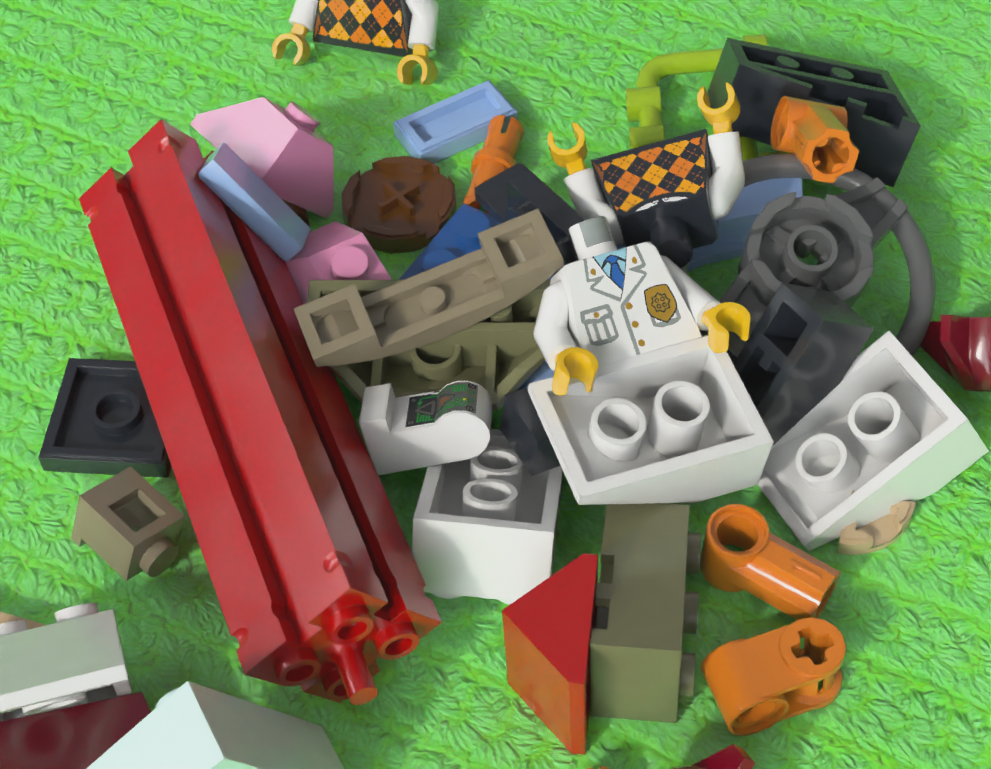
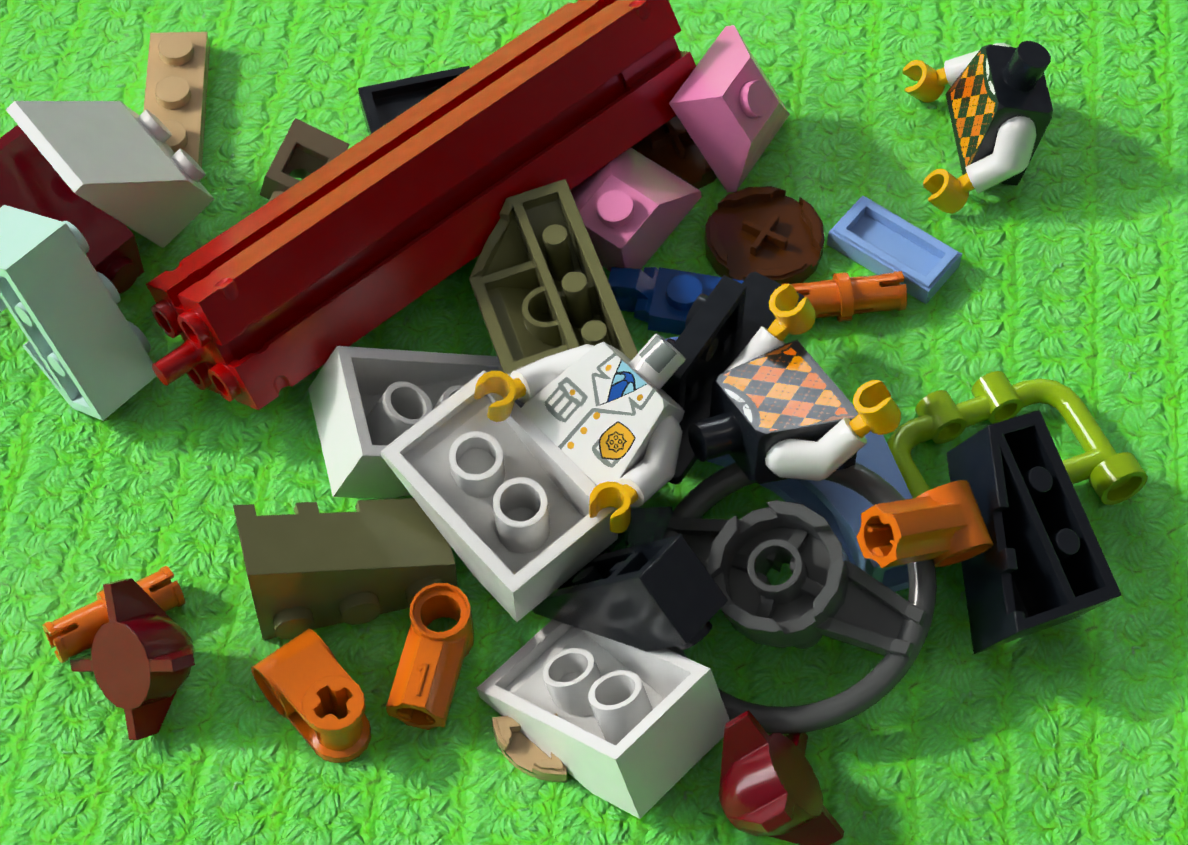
camera: 65 degrees right, 5 degrees up
(254, 202) = (642, 106): light blue tile -> none
(425, 426) = (457, 324): white leg -> none
(434, 303) = (557, 267): dark tan slope -> none
(550, 649) = (251, 475): red slope -> none

